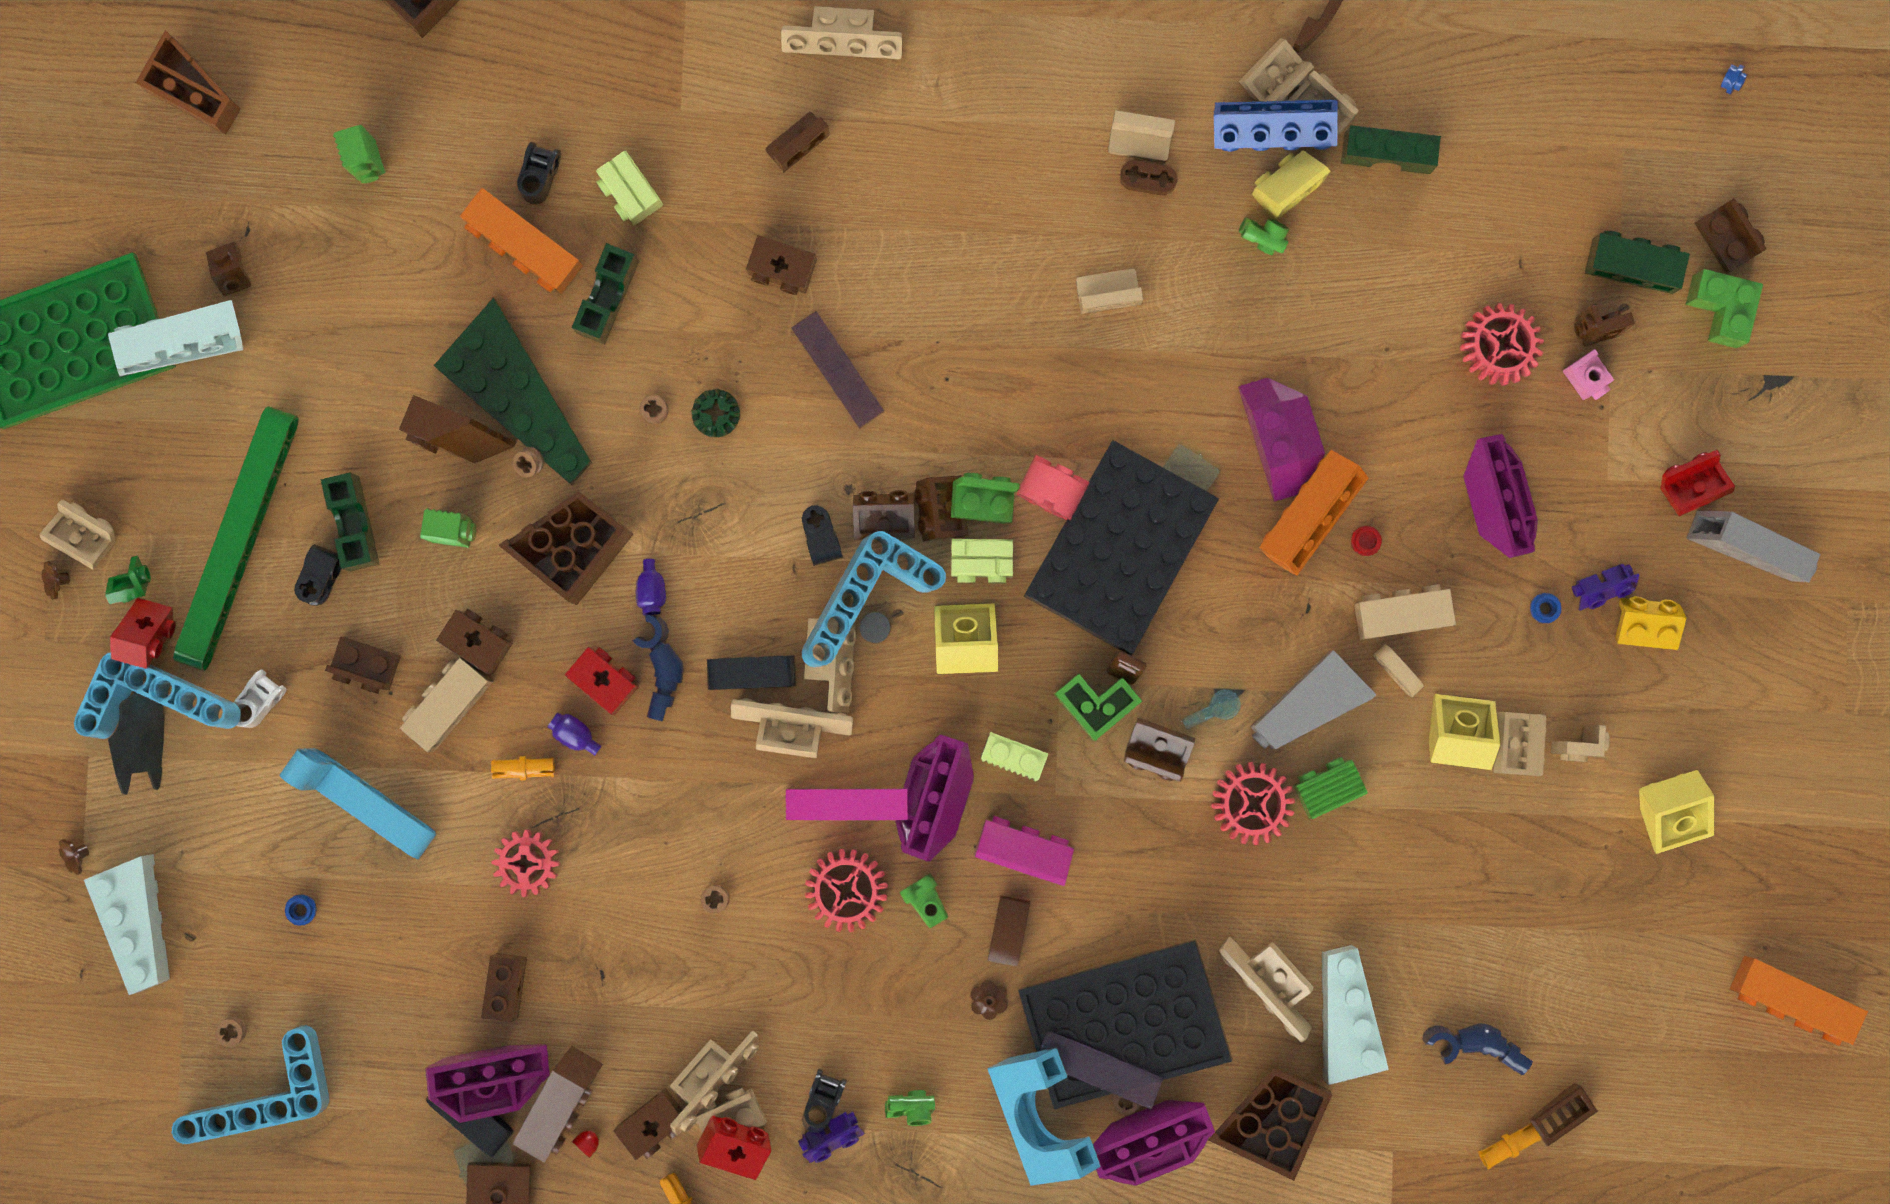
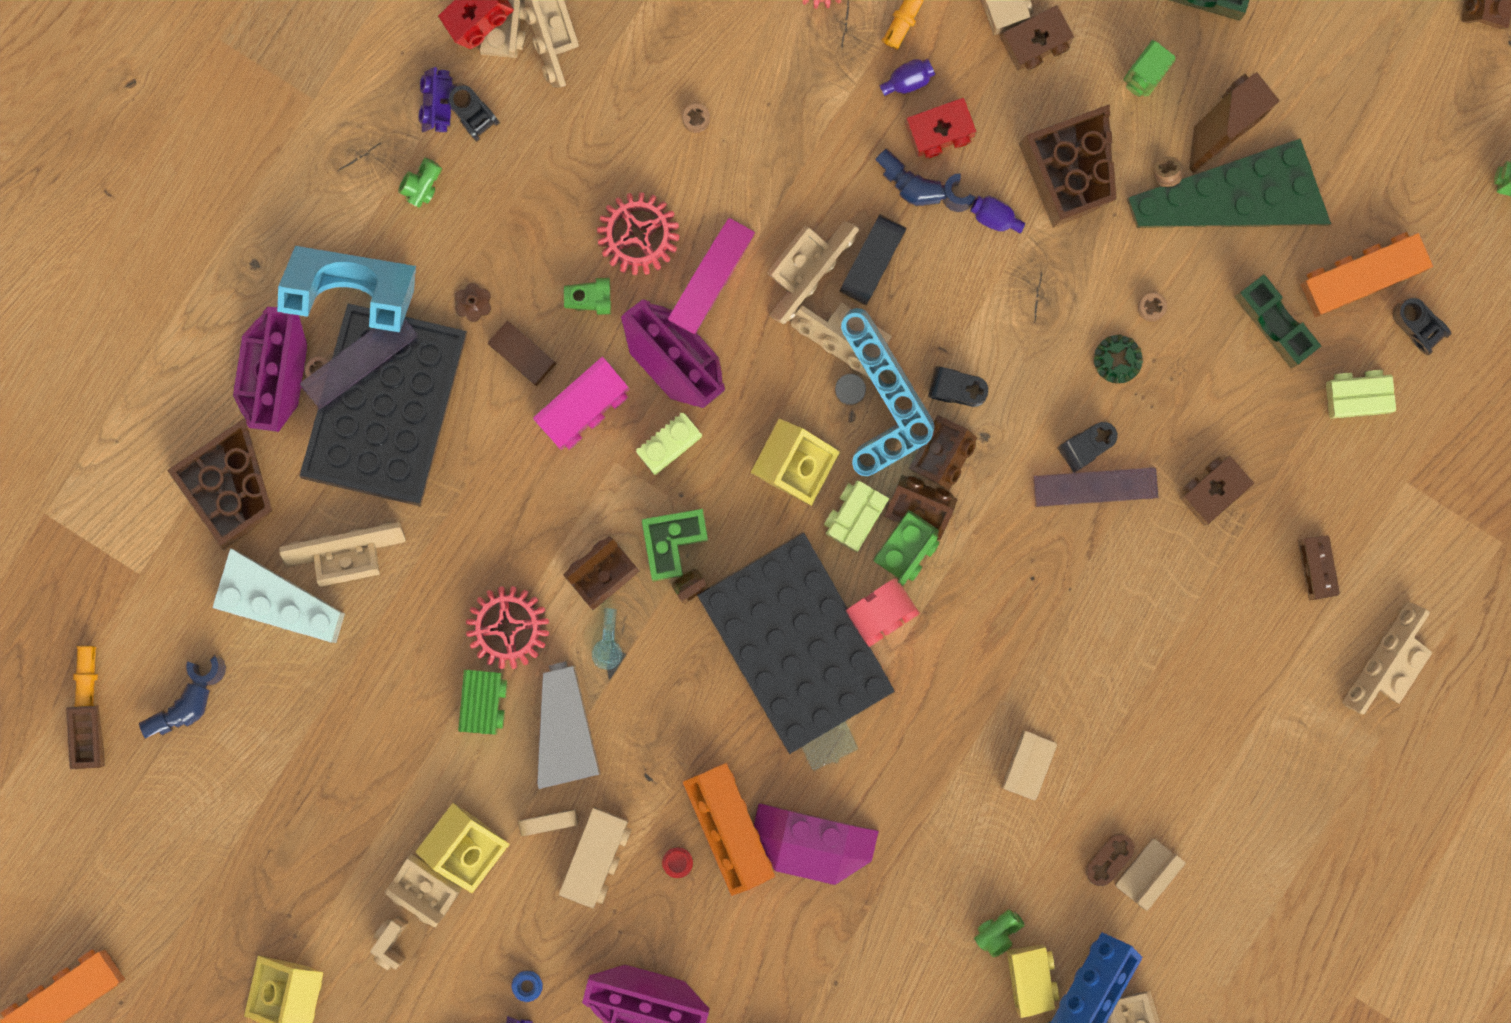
camera: 120 degrees right, 0 degrees up
(811, 397) = (1084, 448): none -> black piece

